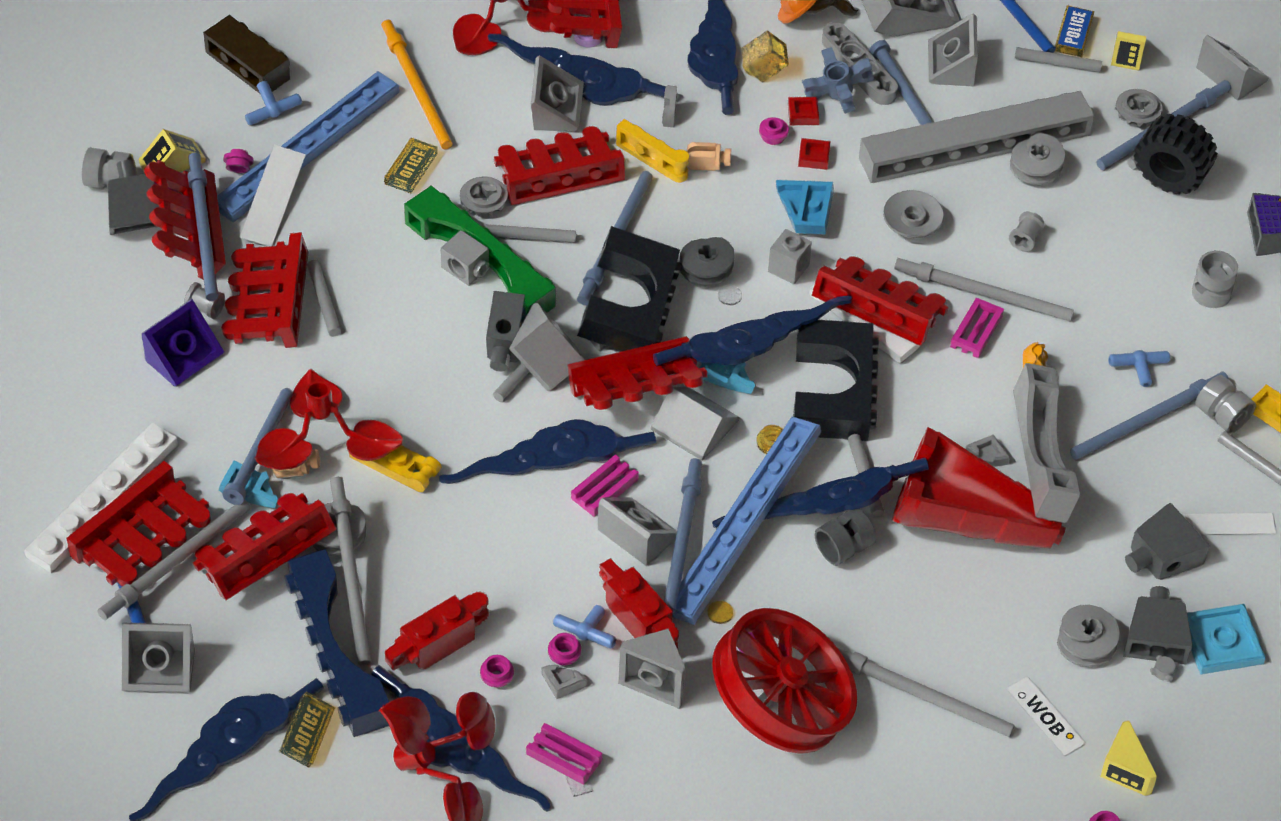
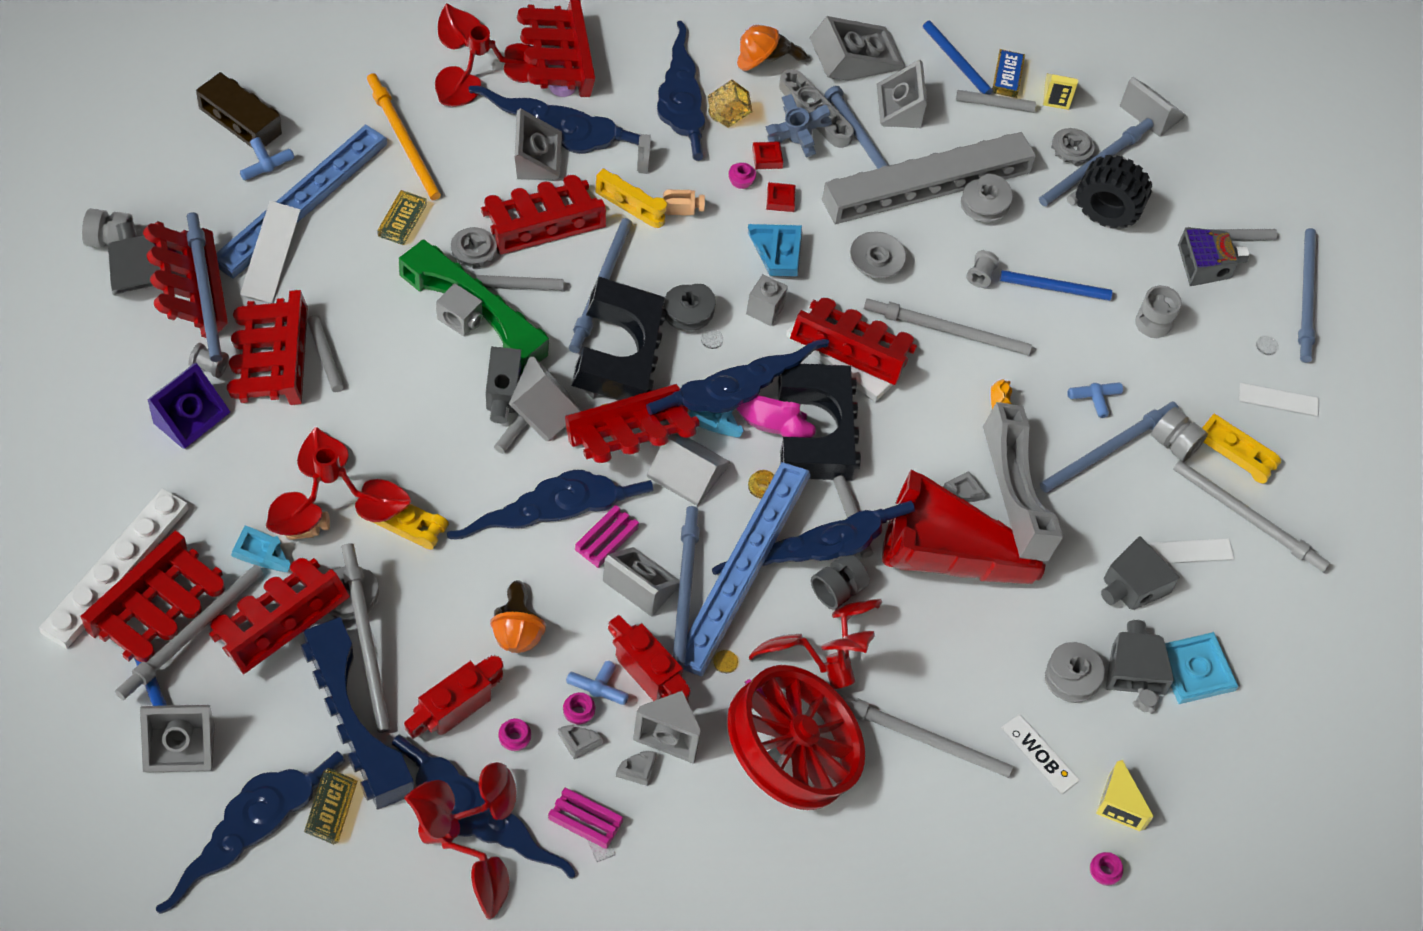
camera: 10 degrees left, 5 degrees up
(172, 150) = (169, 209): light yellow slope -> none
(235, 492) = (248, 559): sand blue bar -> none
(238, 161) = (235, 217): dark pink plate -> none
(504, 566) = (514, 624): none -> orange piece
(621, 709) = (637, 767): none -> light grey tile
(790, 372) = (777, 417): none -> dark pink animal
(836, 617) = (839, 663): none -> red plant
(969, 345) = (937, 382): dark pink tile -> none
(1106, 250) = (1056, 285): none -> blue bar

